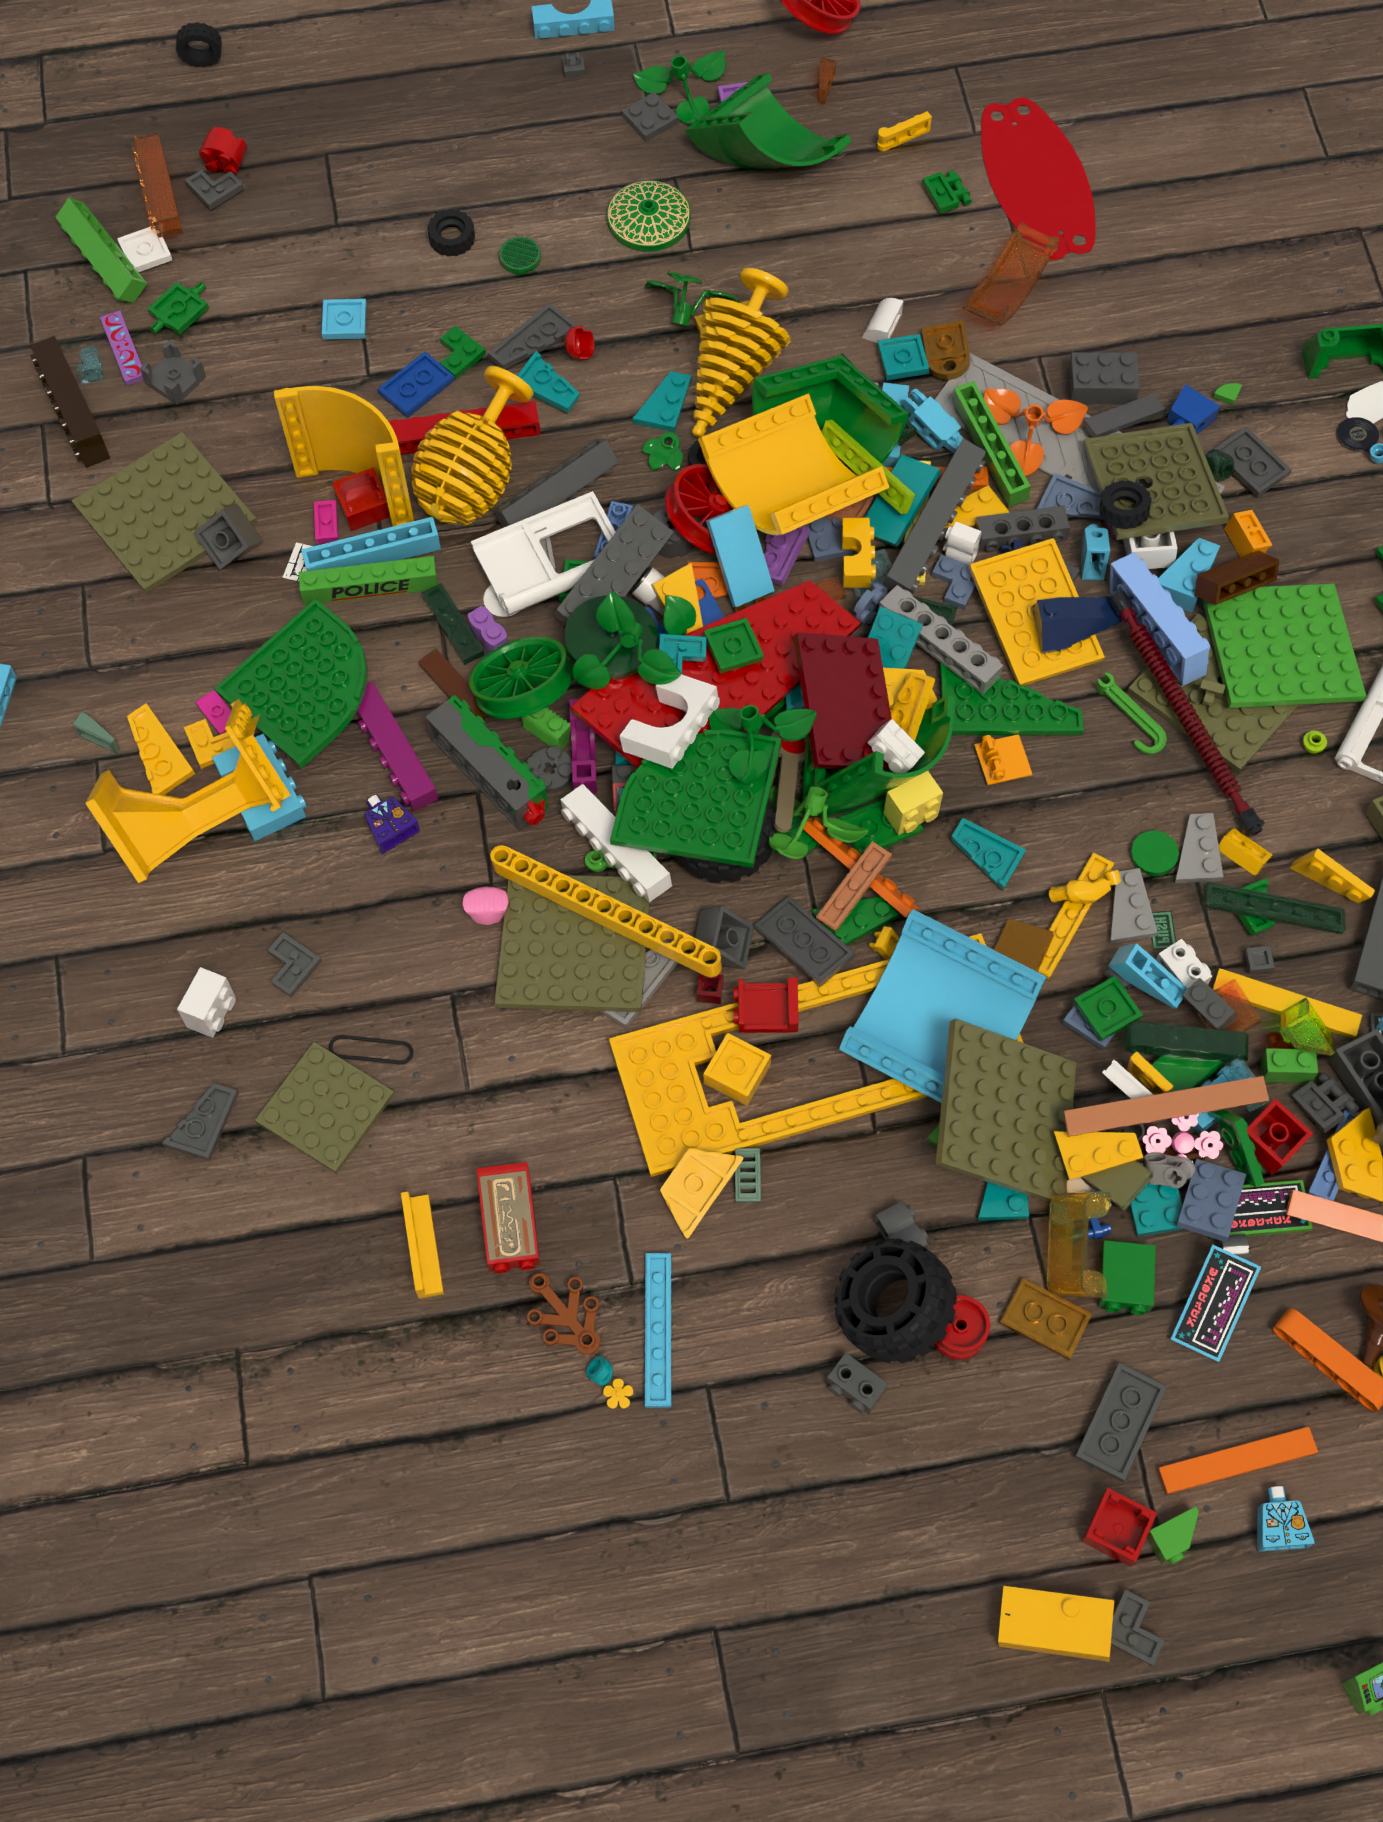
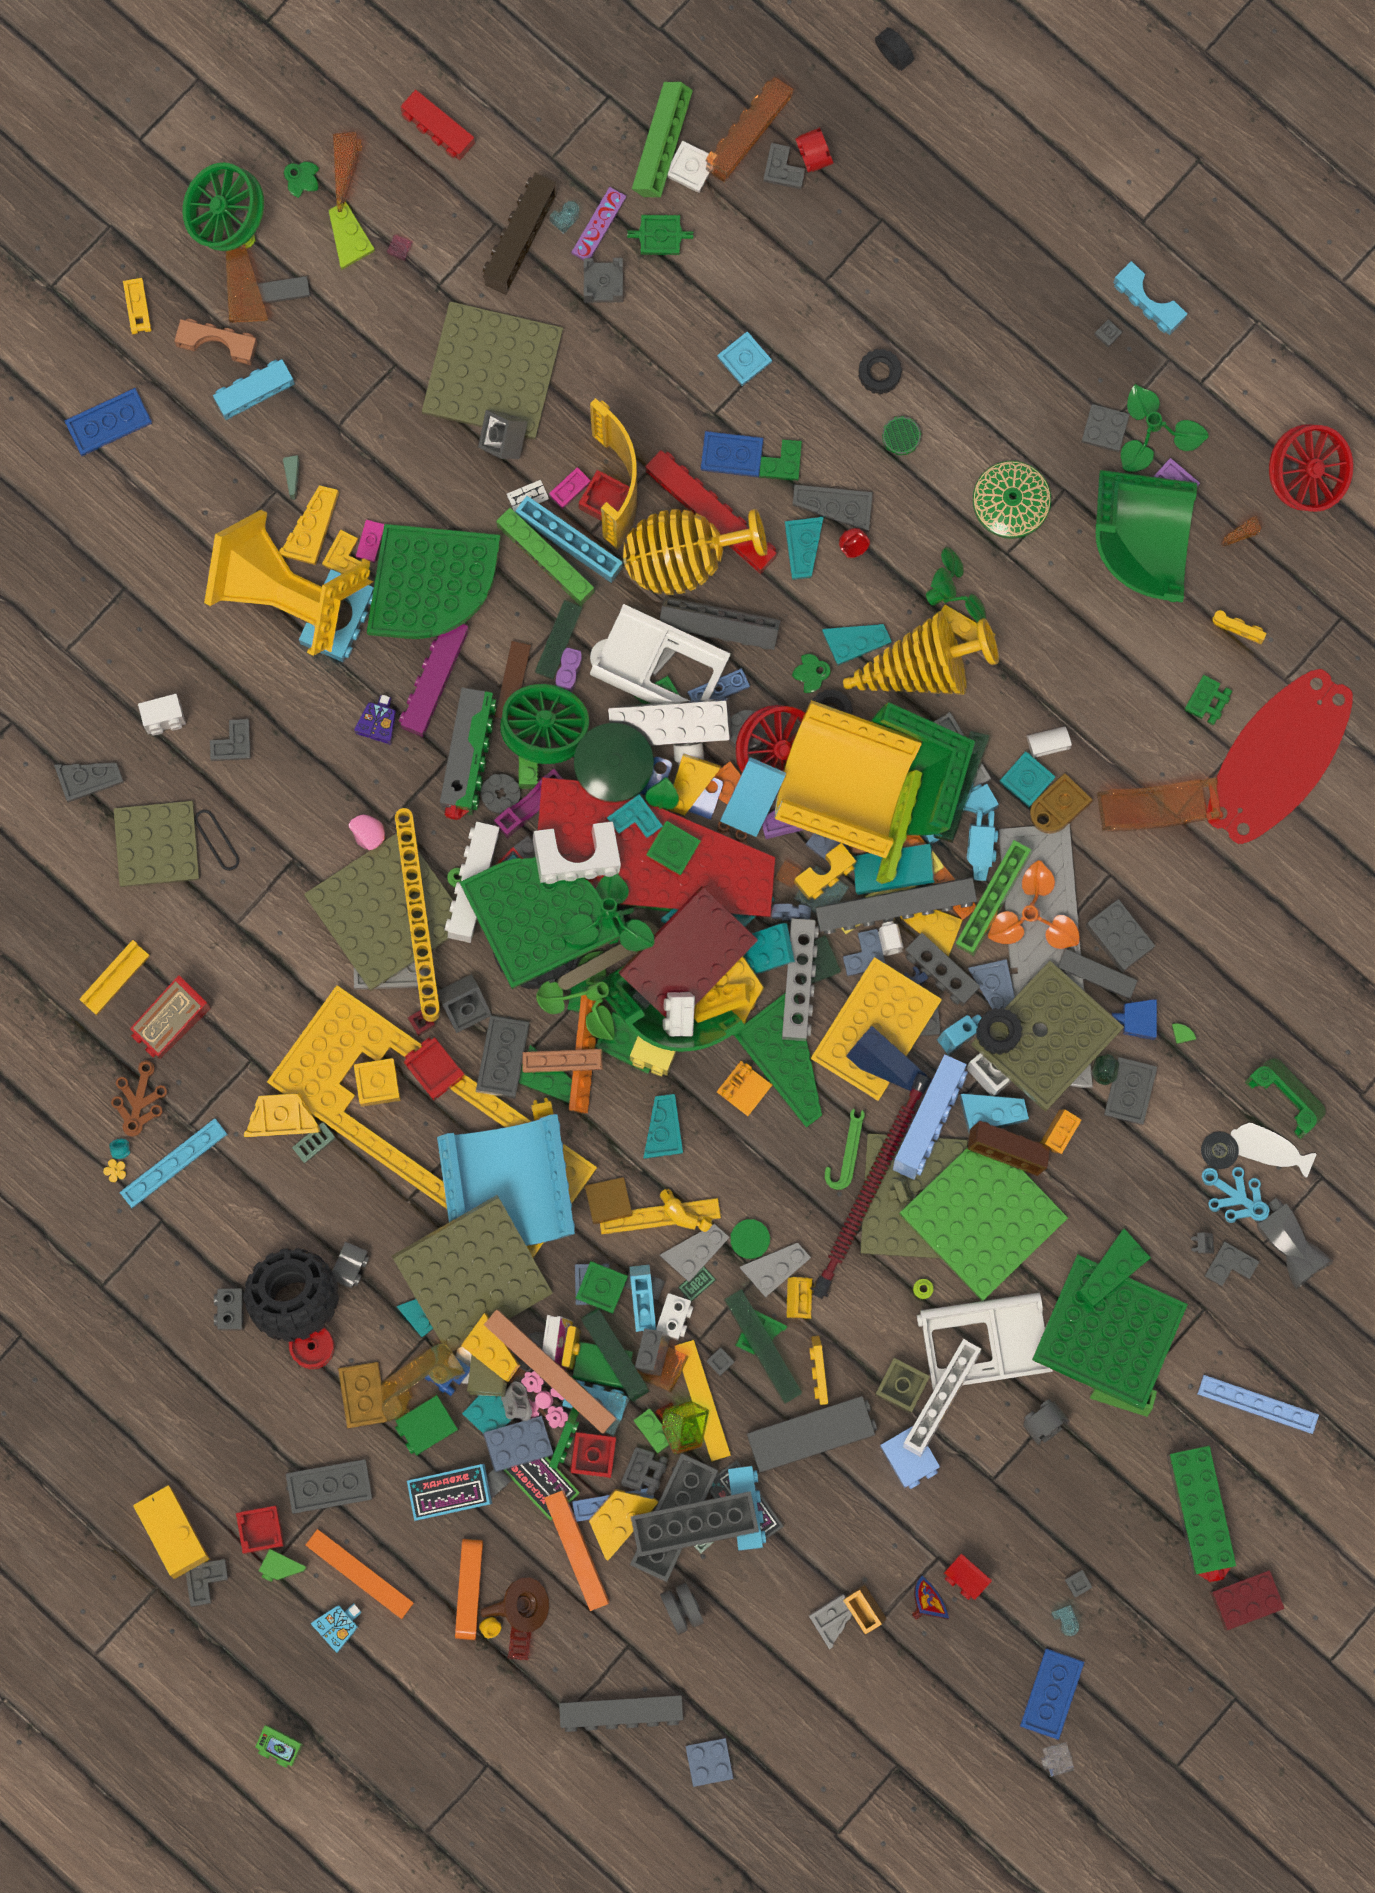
camera: 50 degrees right, 15 degrees up
(615, 615) = (606, 764): green plant -> none

